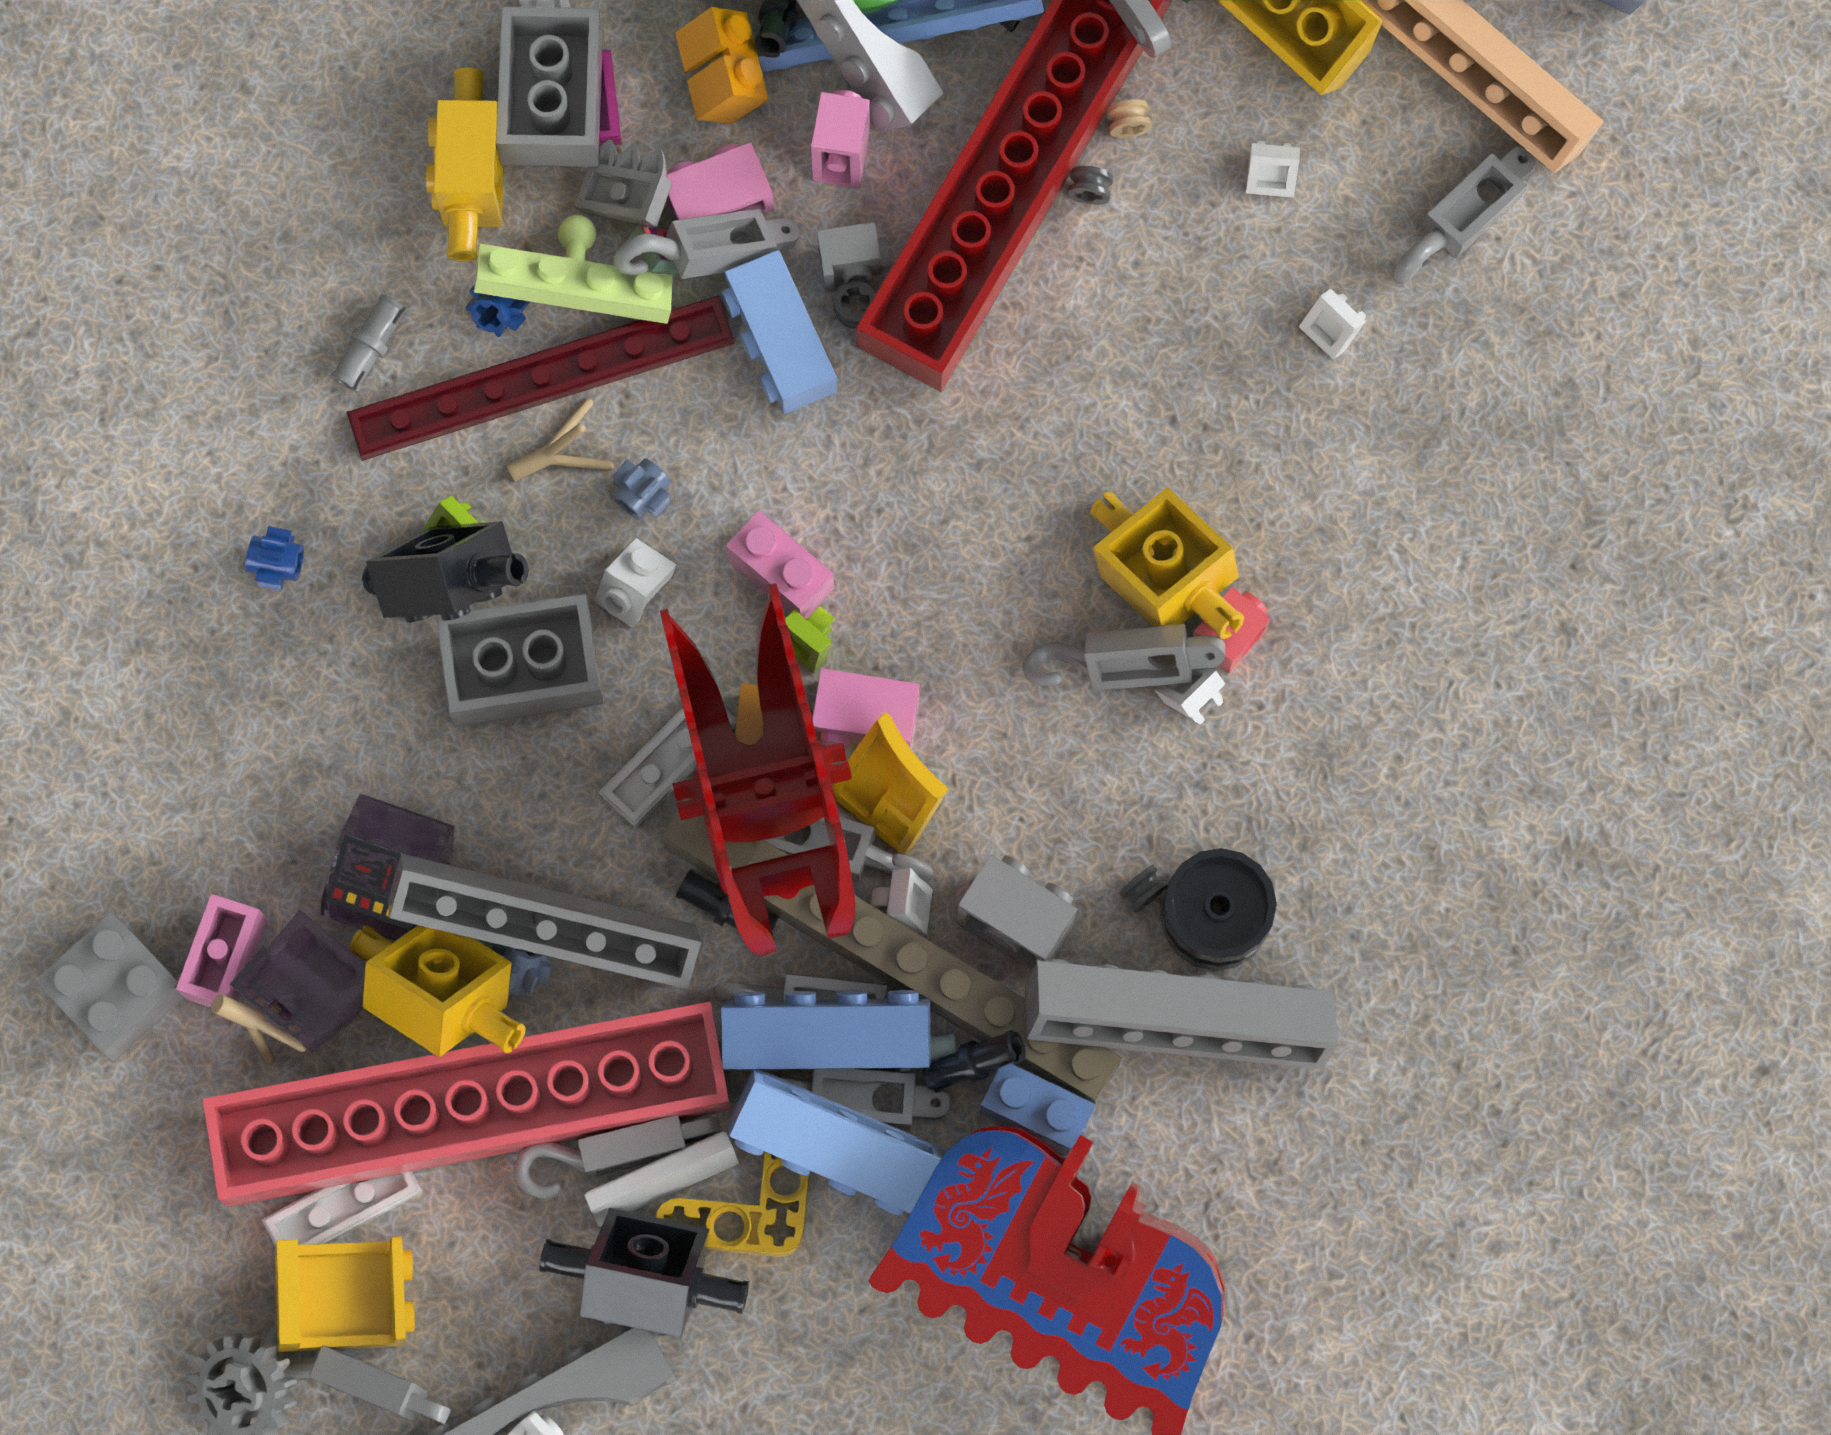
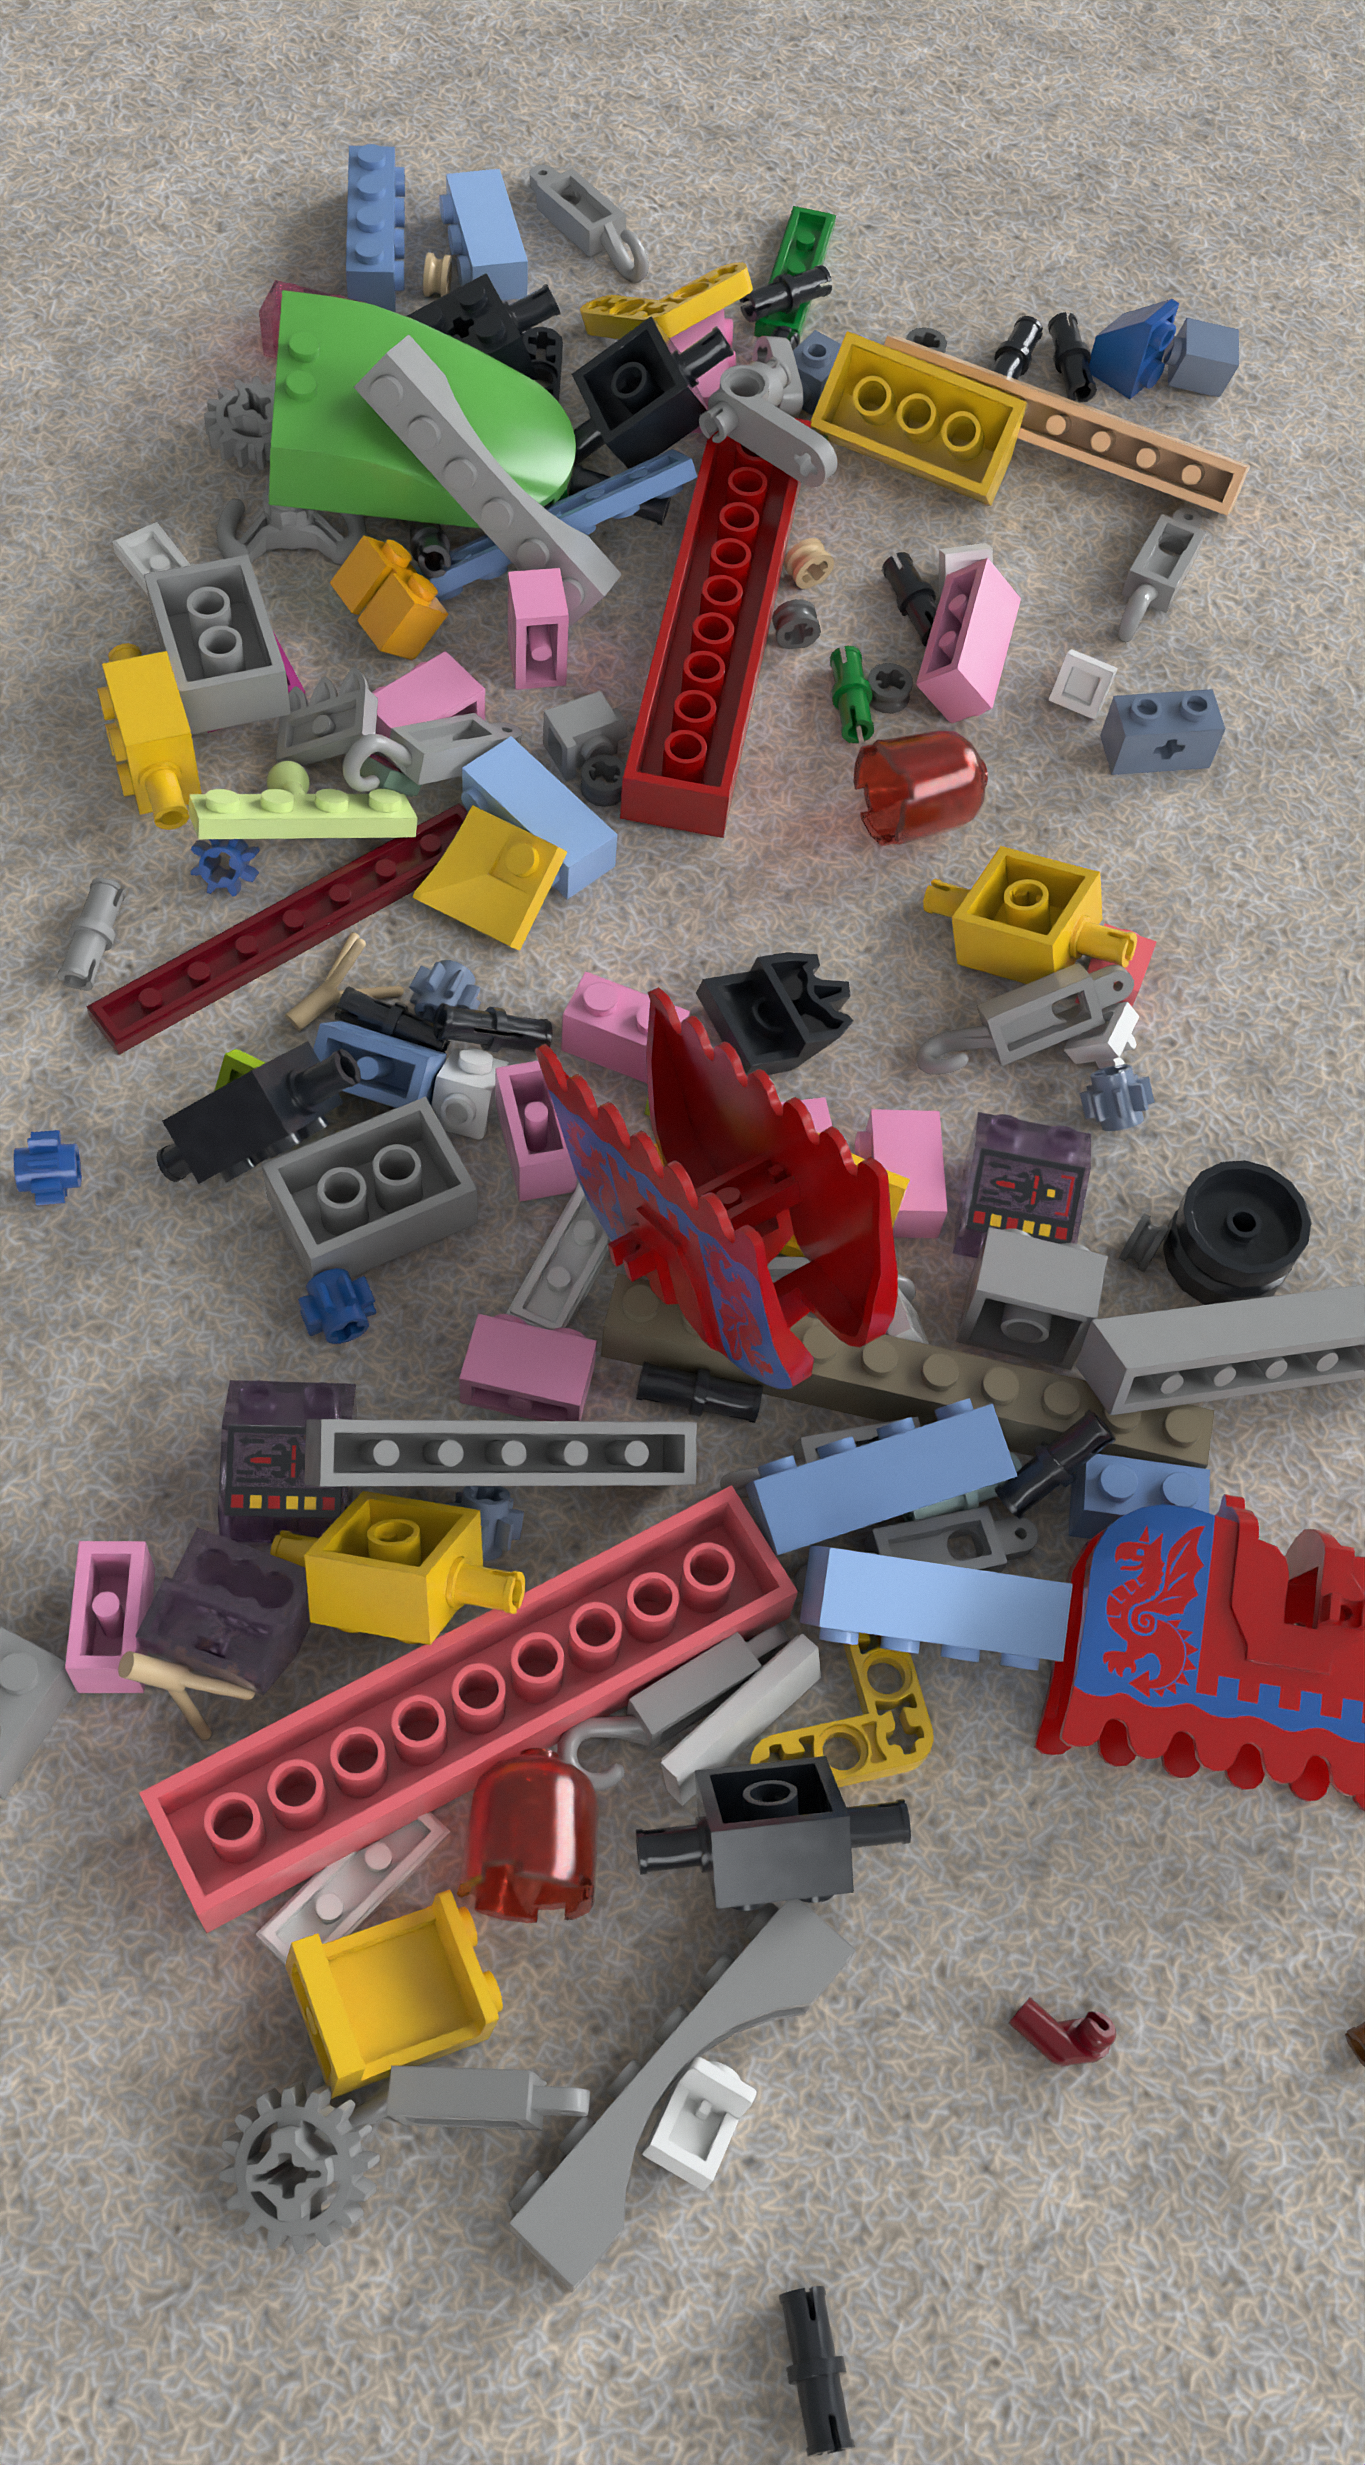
camera: 25 degrees left, 15 degrees down
(465, 748) = (337, 1306): none -> blue gear
(473, 1217) = (531, 1839): none -> clear red cylinder
(561, 543) = (389, 1067): none -> medium blue brick
(592, 502) = (387, 1019): none -> black pin
(598, 847) = (527, 1369): none -> bright pink brick
(669, 535) = (478, 1026): none -> black pin
(685, 608) = (532, 1133): none -> bright pink brick
(718, 384) = (493, 877): none -> yellow plate
(917, 584) = (776, 1011): none -> black plate
(968, 763) = (911, 1147): none -> bright pink brick
(1055, 815) = (1022, 1180): none -> clear purple piece
(1113, 274) = (851, 694): none -> green pin
(1130, 399) = (919, 785): none -> clear red cylinder
(1152, 260) = (896, 698): none -> dark grey bush
(1176, 751) = (1117, 1097): none -> sand blue gear
(1217, 183) = (913, 594): none -> black pin
(1239, 252) = (968, 641): none -> bright pink brick
(1382, 397) = (1162, 731): none -> sand blue brick

